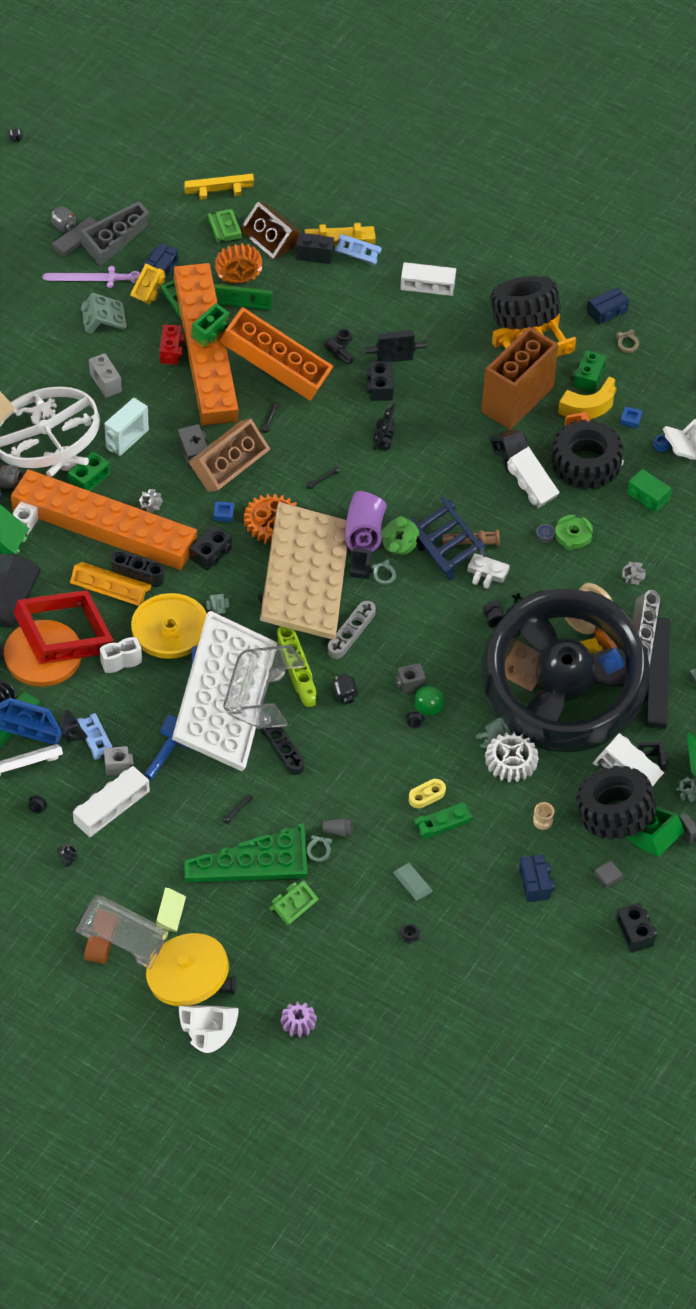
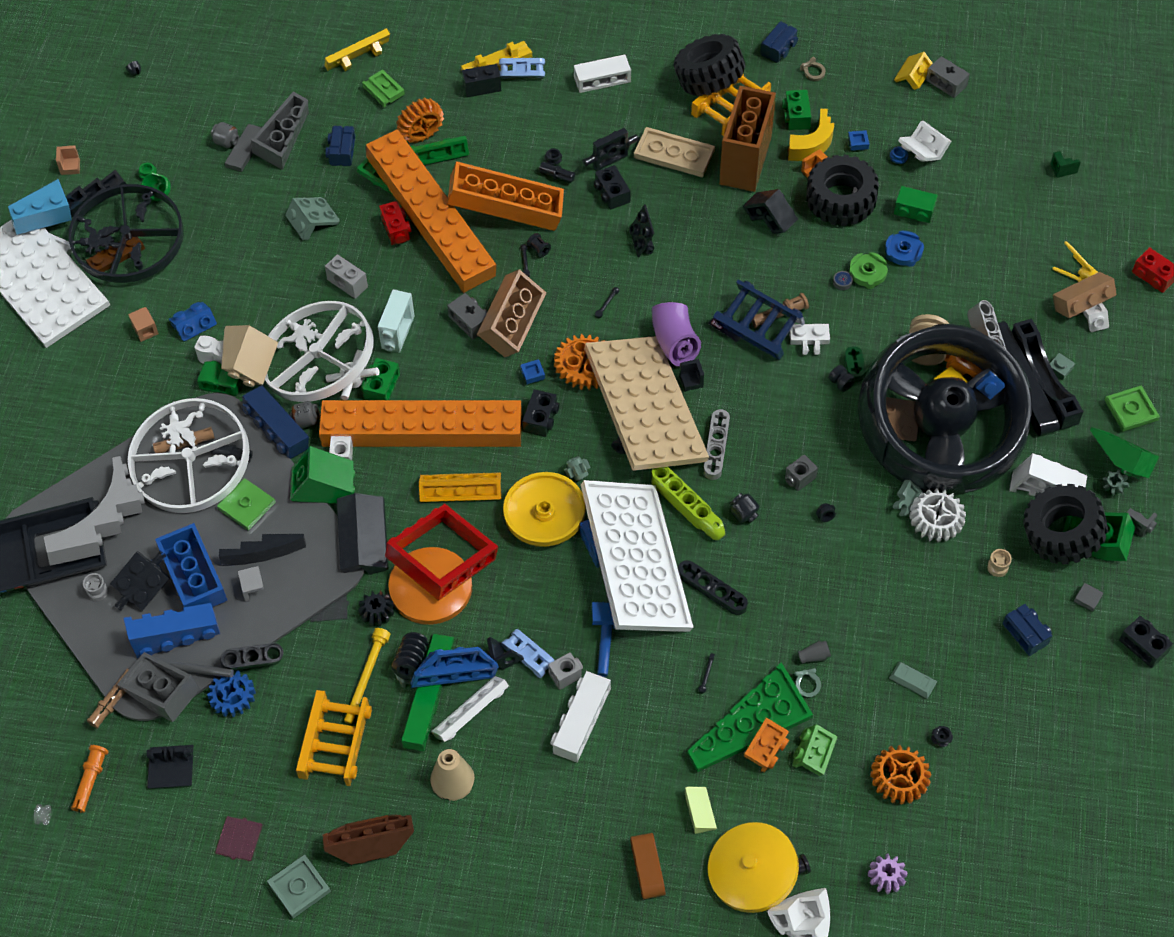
camera: 20 degrees left, 5 degrees up
(37, 804) = (509, 749): black plate -> none
(67, 854) = (566, 790): black plate -> none
(110, 277) = (299, 175): lavender sword -> none
(119, 655) = (510, 559): white brick -> none
(123, 929) = (676, 852): clear windscreen -> none
(138, 568) = (473, 456): black beam -> none
(148, 284) = (341, 170): yellow bracket -> none
(151, 500) = (452, 387): light grey gear -> none
(210, 325) = (433, 190): green brick -> none
(250, 681) = (652, 528): clear windscreen -> none
(253, 881) = (766, 744): none -> orange bracket
(270, 230) = (430, 78): reddish brown slope -> none
(288, 407) = (540, 246): none -> black bush
(364, 942) = (893, 760): none -> orange gear
(374, 568) = (716, 368): sand green piece -> none
(391, 532) = (725, 333): bright green plate -> none
(426, 793) = (878, 585): light yellow plate -> none
(429, 700) = (828, 487): green hair -> none
(443, 820) = (908, 604): green plate -> none
(453, 369) = (674, 152): none -> tan plate
(532, 478) = (807, 231): white brick -> none
(617, 534) = (904, 257): none -> blue plate
(633, 573) = (946, 294): light grey gear -> none
(657, 750) = (1069, 457): black bracket -> none
(680, 676) = (1062, 401): none -> black arch

